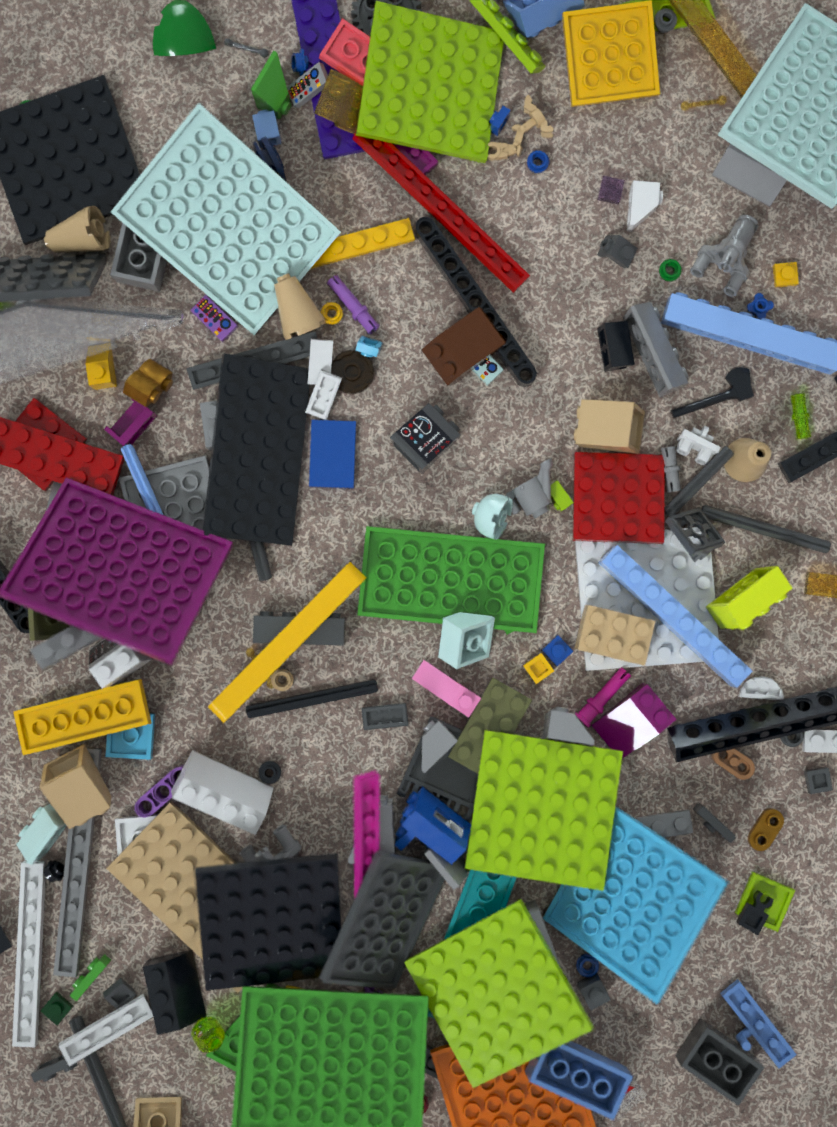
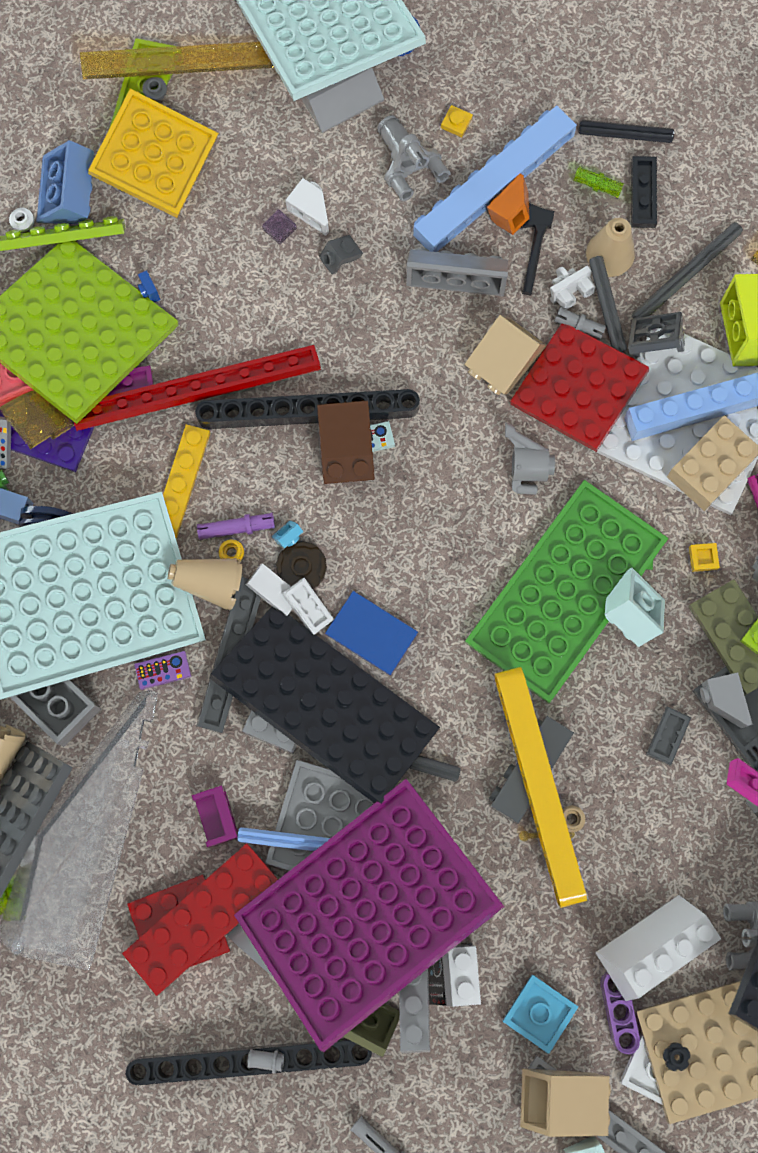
camera: 60 degrees left, 10 degrees down
(82, 717) = (493, 1053): yellow plate -> none
(101, 370) = (148, 816): yellow slope -> none
(148, 383) = (188, 772): pearl gold brick -> none
(156, 843) = (669, 1057): none -> black plate
(269, 765) = (652, 888): black plate -> none
(311, 698) = (608, 800): black axle -> none
(425, 437) = (412, 532): slope -> none
(446, 688) = (675, 657): bright pink slope -> none
(491, 515) = (526, 512): light aqua cylinder -> none
(537, 119) = (169, 254): tan piece -> none
(537, 155) = (209, 269): blue plate -> none
(557, 650) = (696, 530): blue plate -> none
(560, 497) = (547, 439): lime piece -> none
(615, 345) = (430, 306): black hinge -> none
(674, 265) = (388, 211): green plate -> none
(721, 101) = (258, 85): clear yellow hinge -> none
(737, 360) = (511, 206): none -> orange slope
(760, 300) = (470, 165): blue plate -> none

